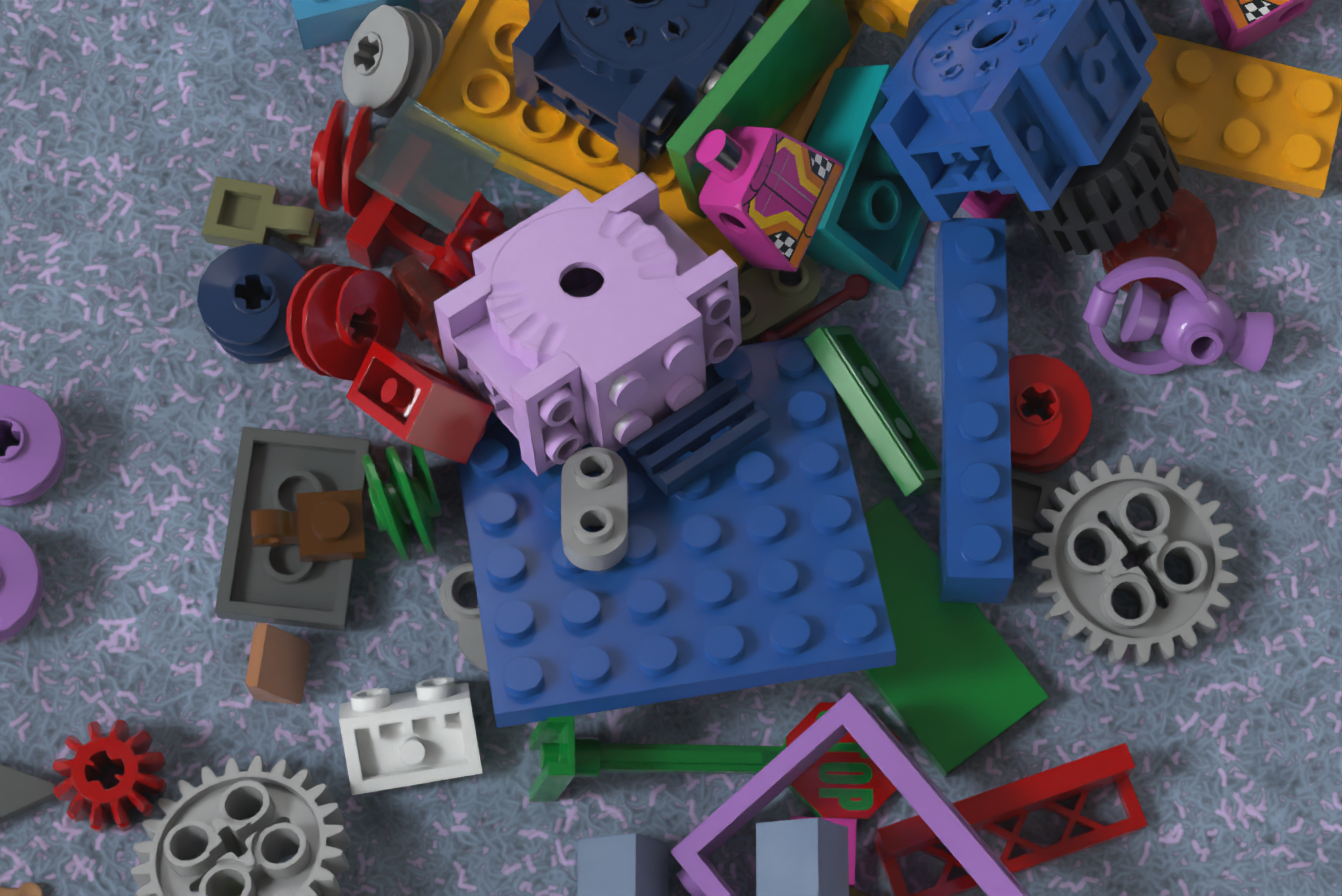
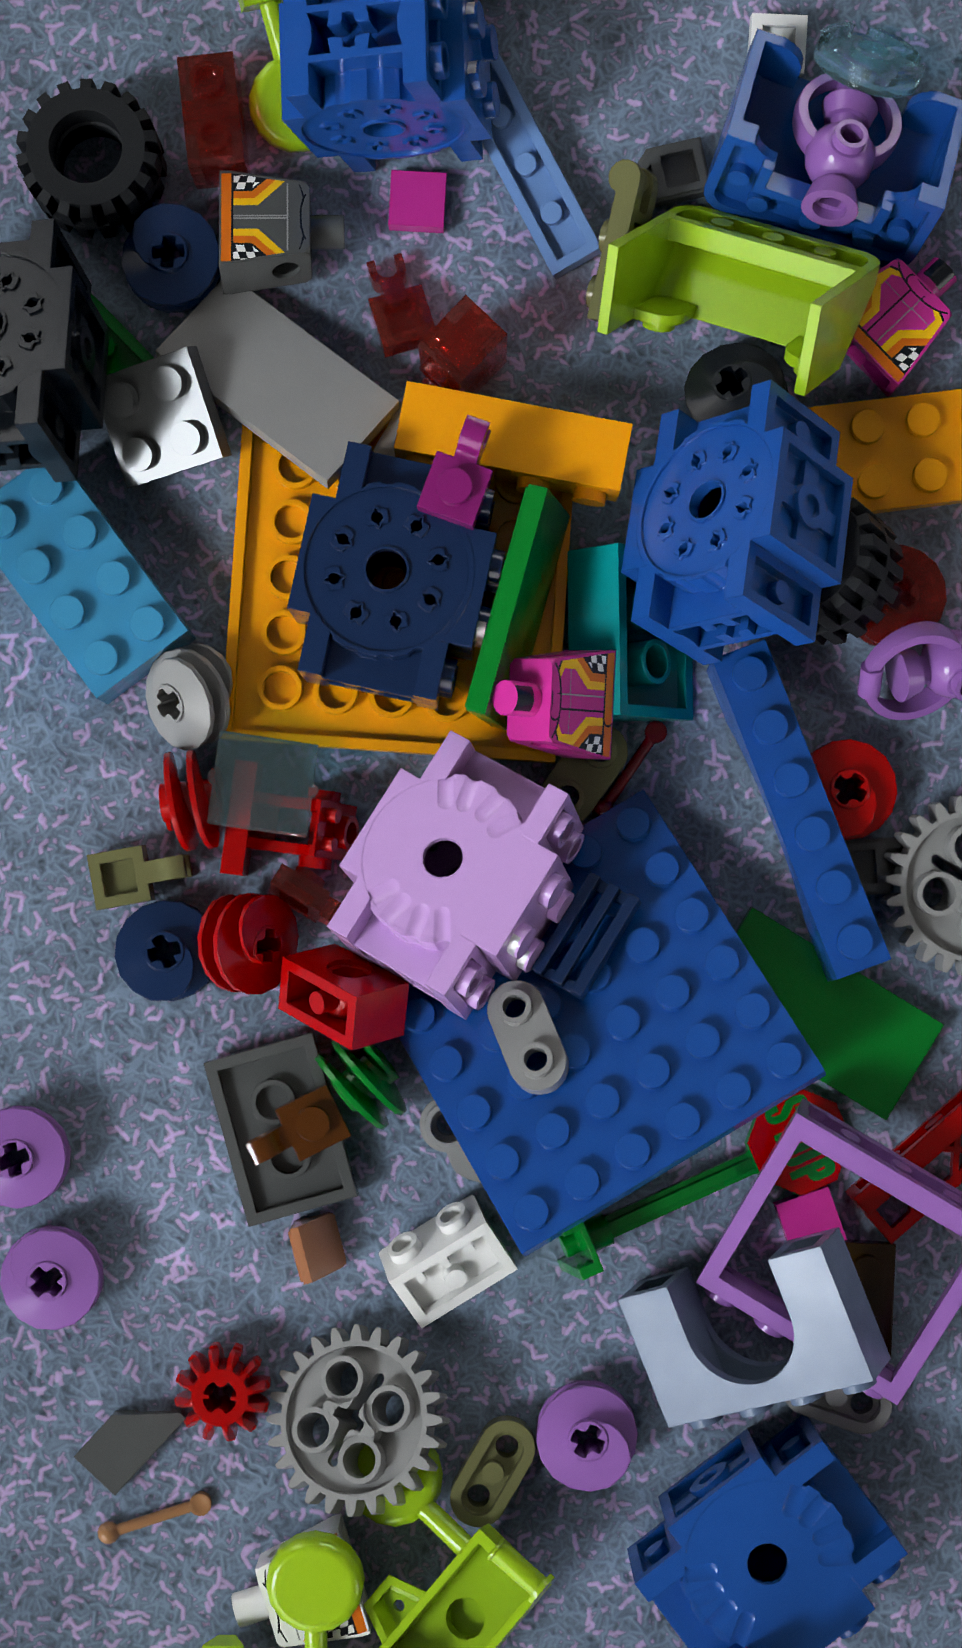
camera: 15 degrees left, 15 degrees up
(876, 409) = (715, 839): green tile -> none

